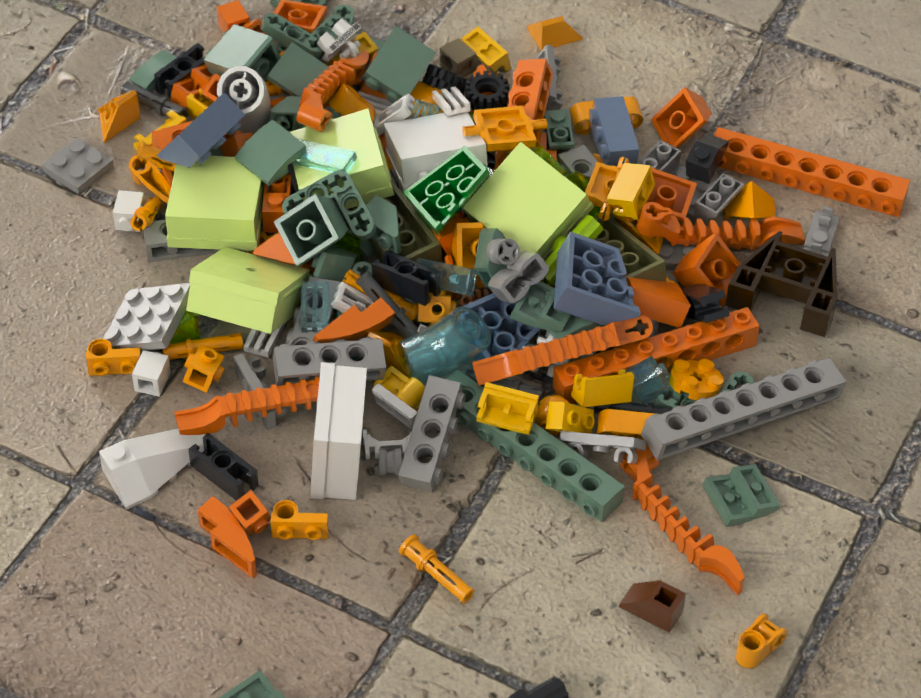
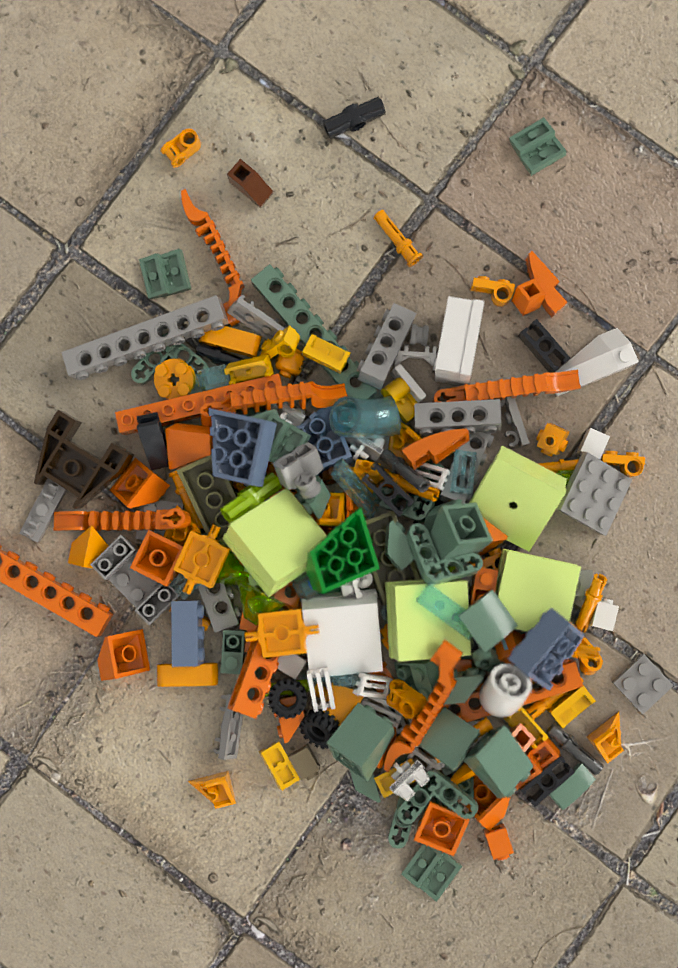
camera: 165 degrees left, 35 degrees up
(631, 189) = (189, 544): yellow hinge -> none
(705, 157) = (113, 600): black slope -> none

